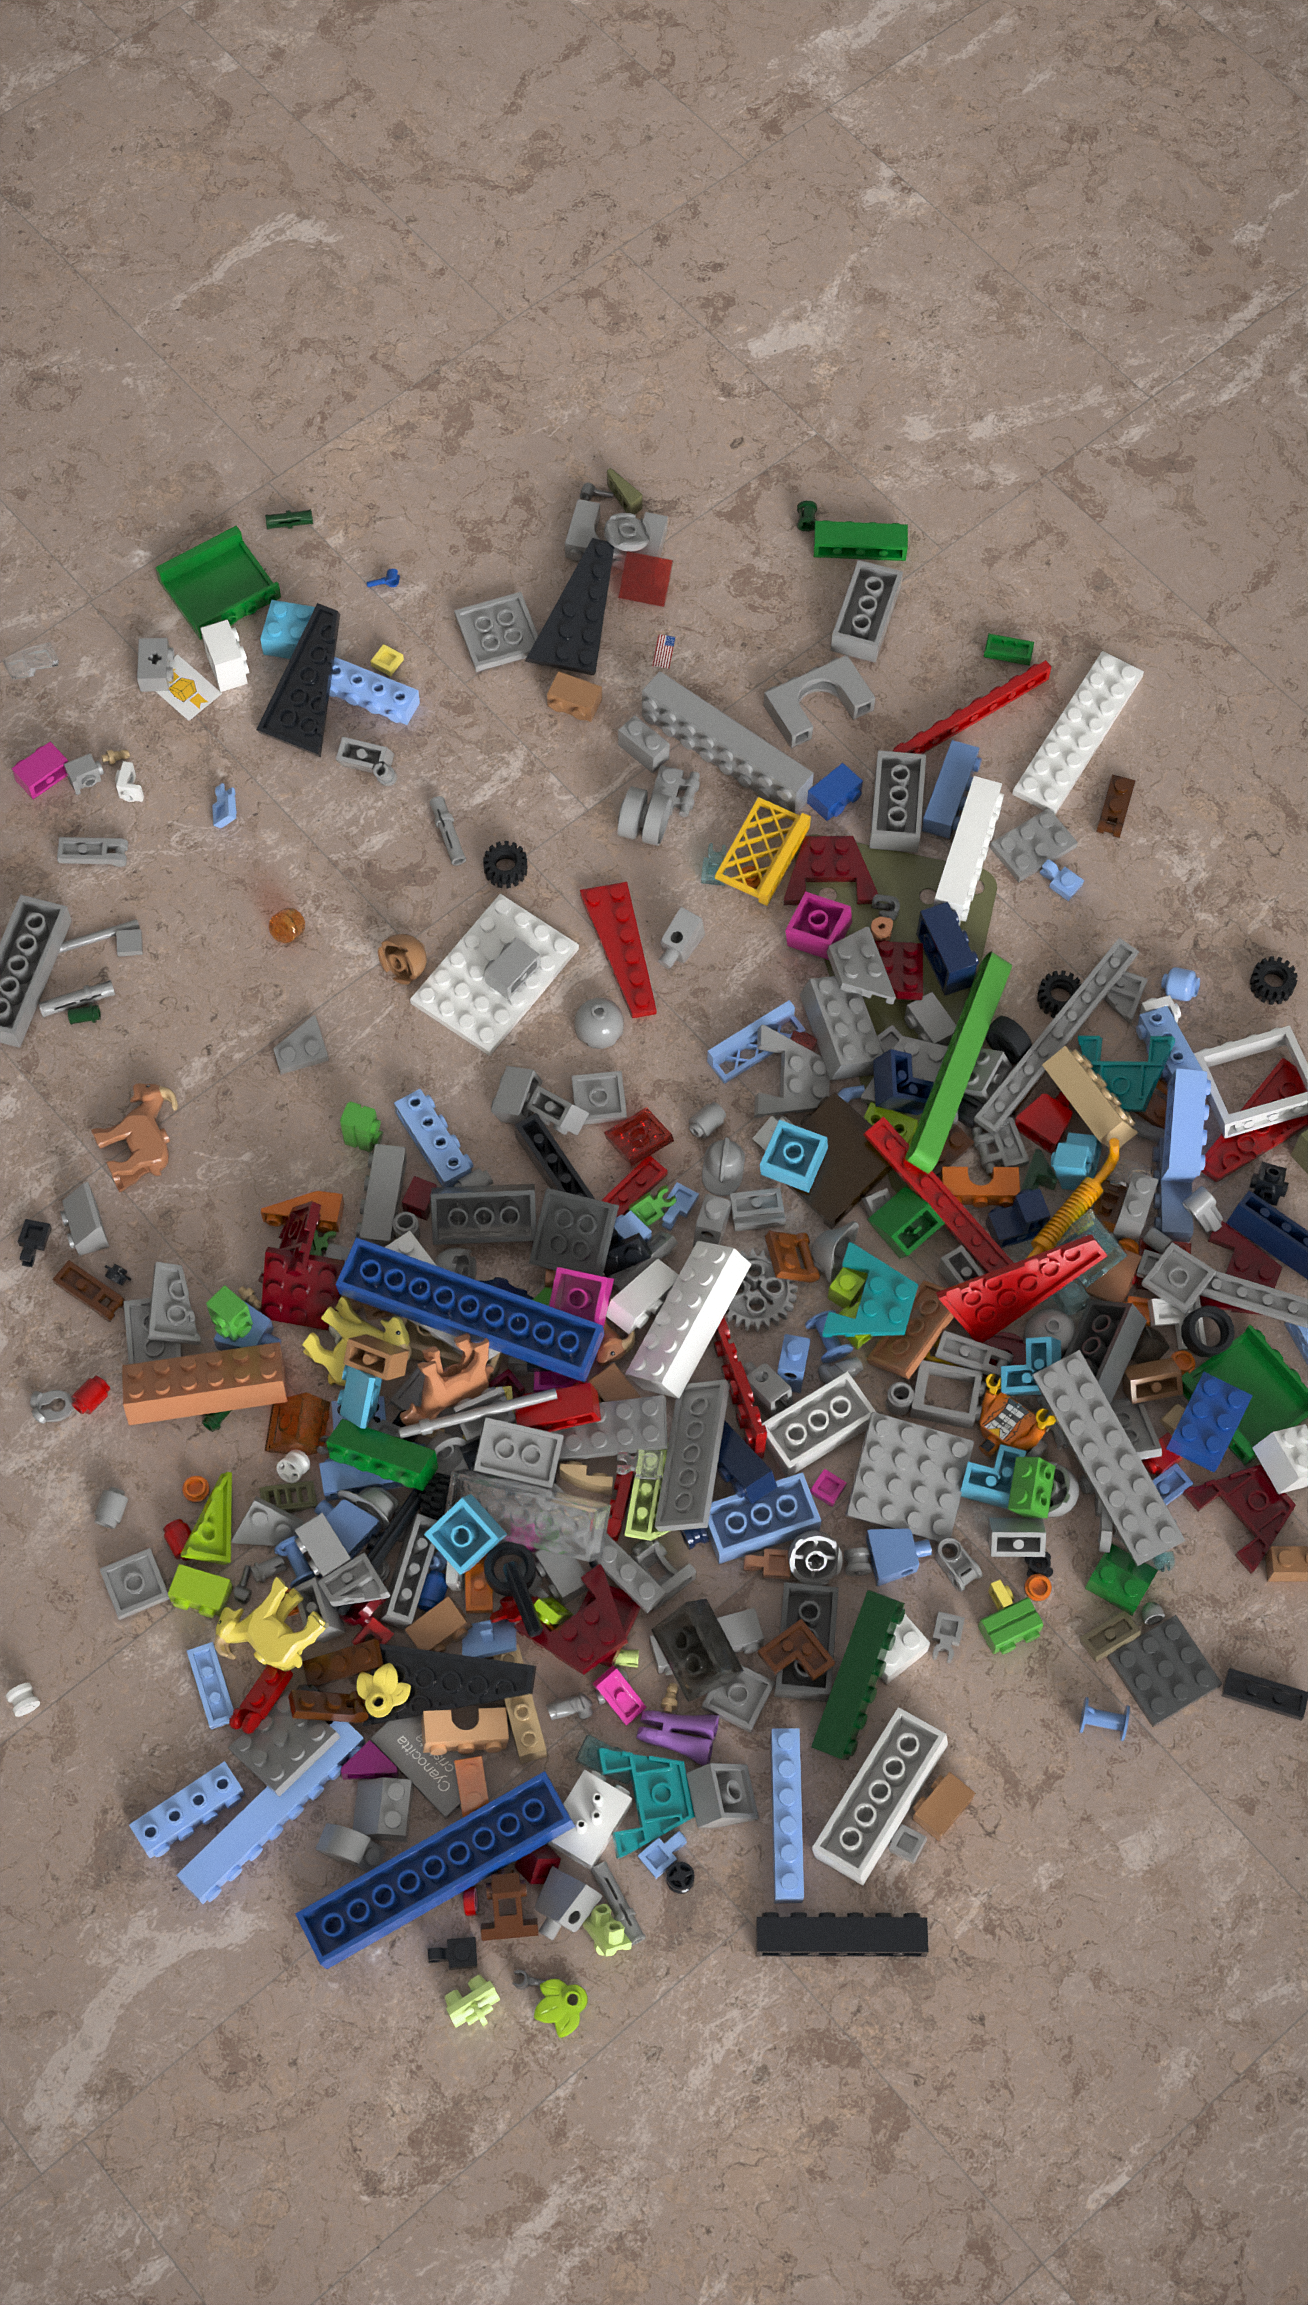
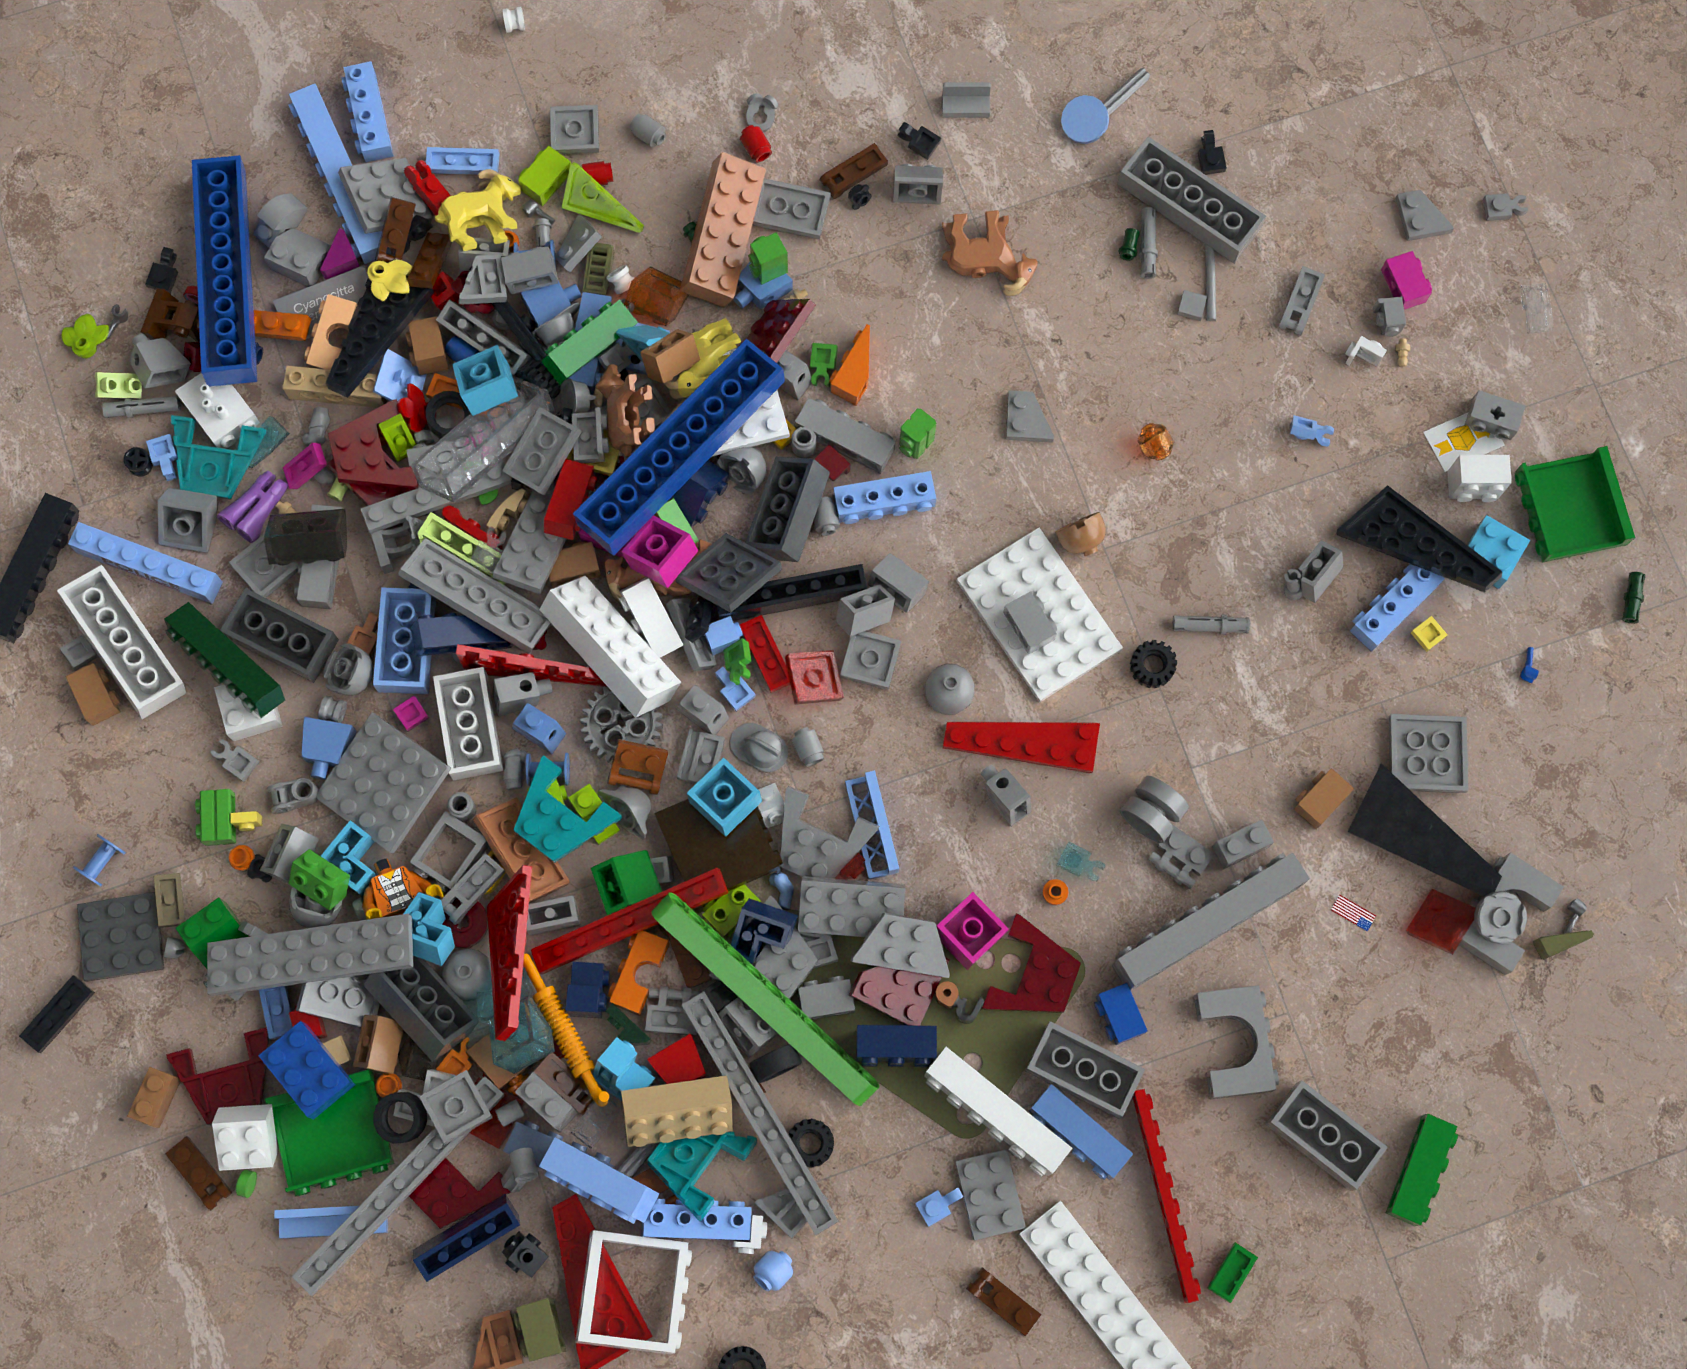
camera: 110 degrees right, 10 degrees up
(170, 1307) = (806, 224): light grey wing -> none
(195, 1489) = (638, 201): orange plate -> none
(298, 1236) = (815, 333): dark red wing -> none
(427, 1426) = (594, 381): light grey bar -> none
(474, 2005) = (118, 259): yellowish green hips -> none
(522, 1599) = (417, 408): black axle -> none
(782, 859) = (1059, 927): yellow fence -> none
(798, 1644) = (269, 617): reddish brown plate -> none
(807, 516) = (1472, 1125): dark green bush -> none

